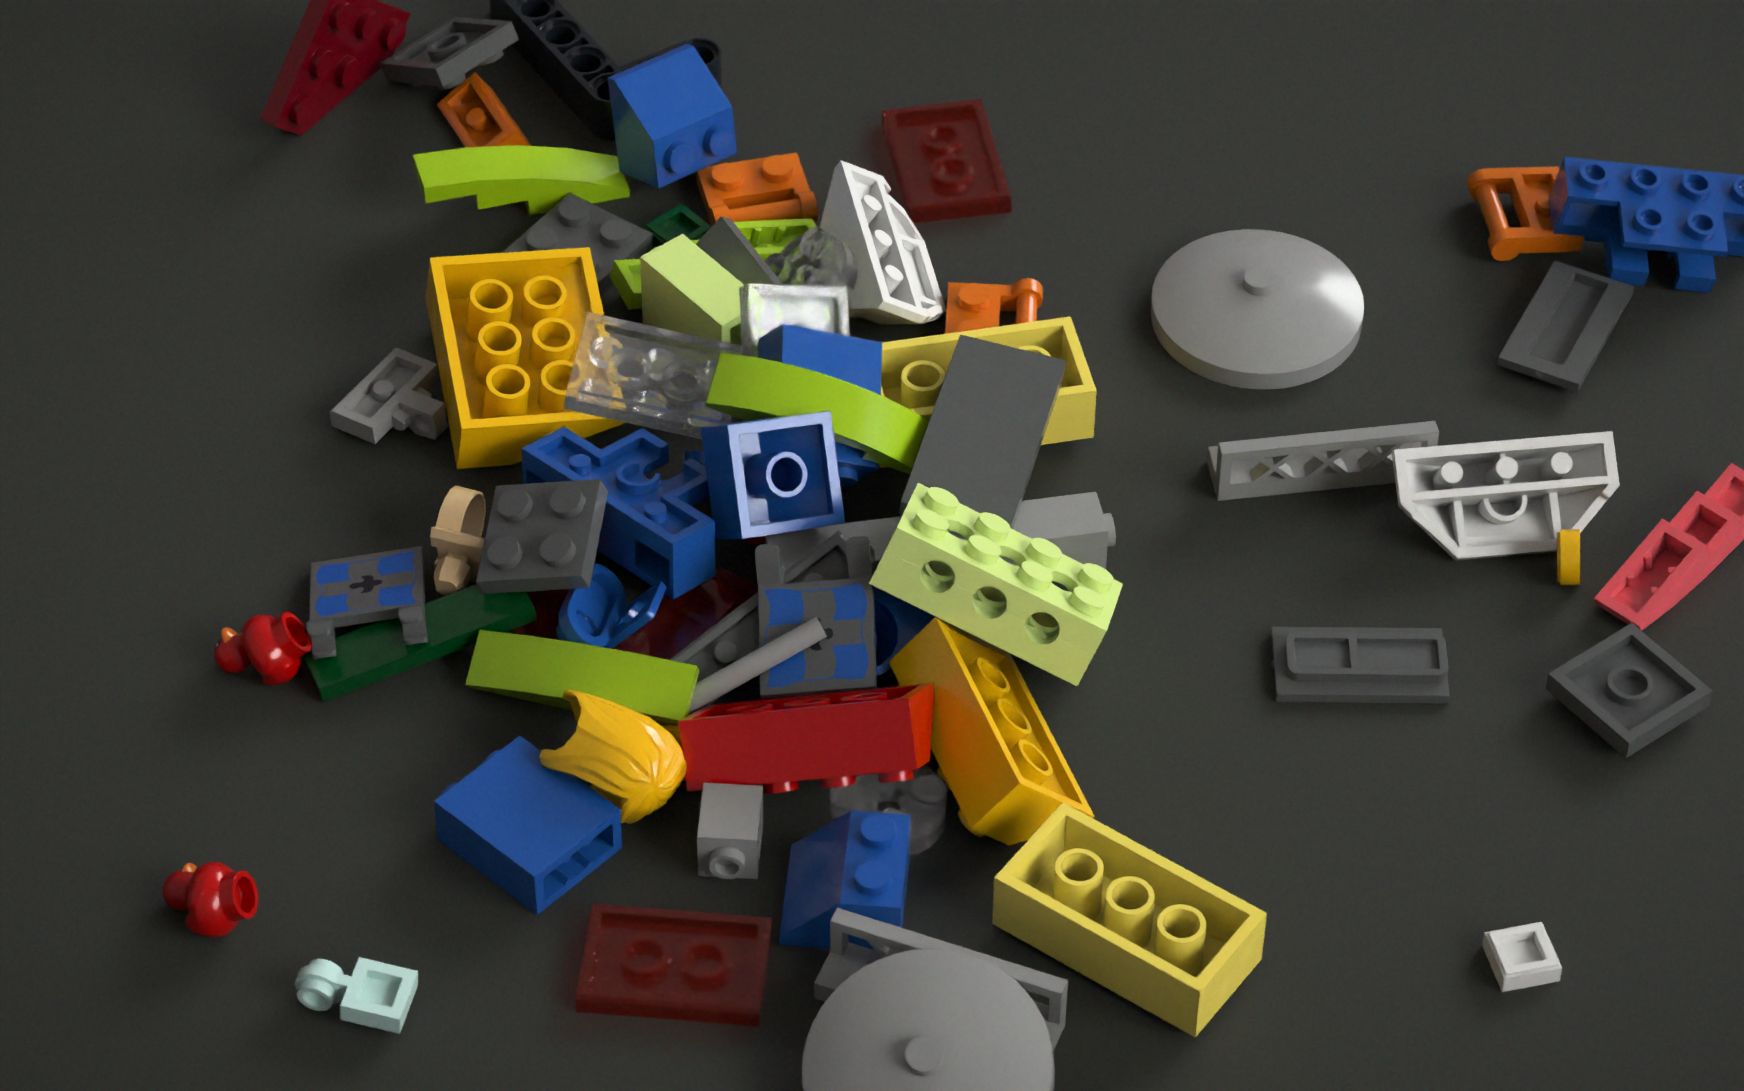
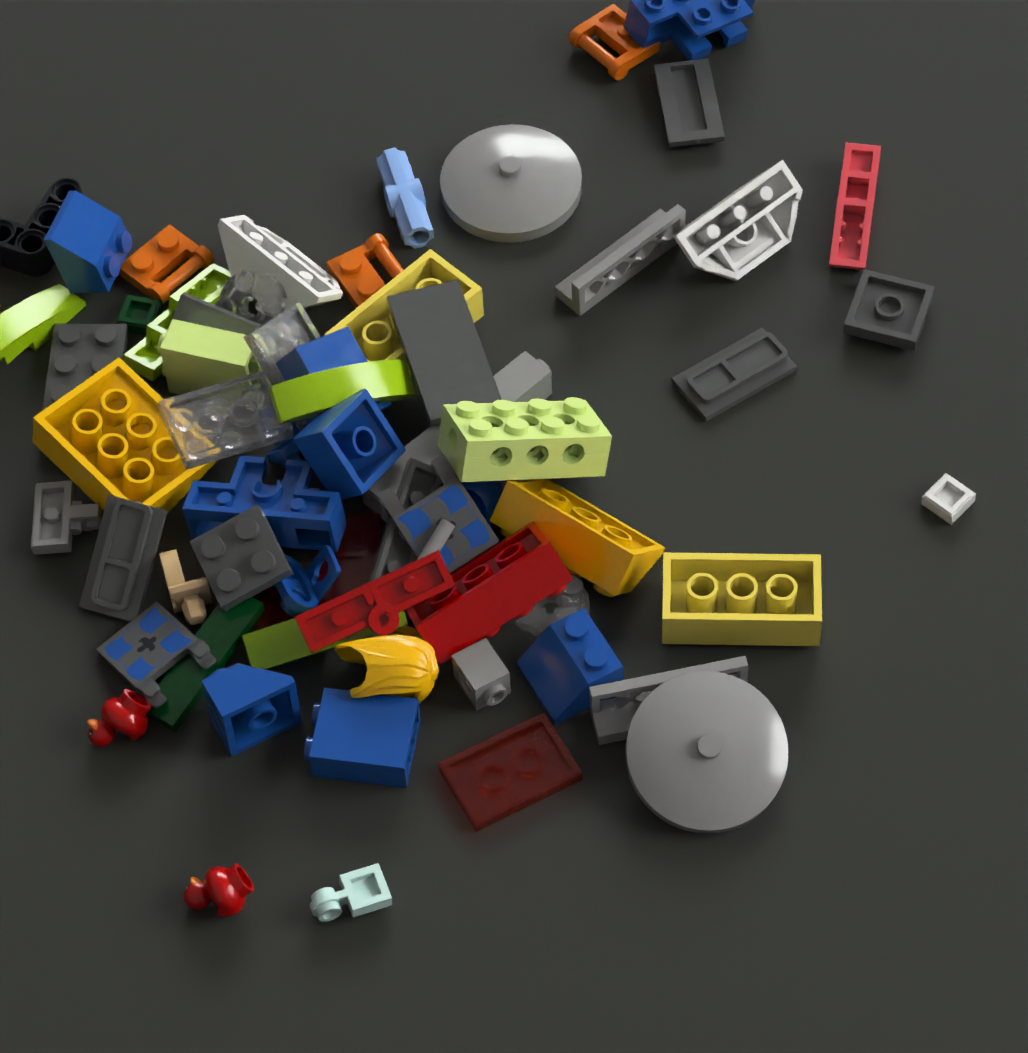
camera: 30 degrees left, 10 degrees up
(414, 709) = (250, 705): none -> blue slope
(416, 473) = (123, 558): none -> dark grey piece
(651, 666) = (375, 603): none -> red hinge
(946, 161) = (258, 182): clear red tile -> none
(1104, 259) = (404, 198): none -> light blue piece
(1568, 557) = (799, 246): yellow tile -> none

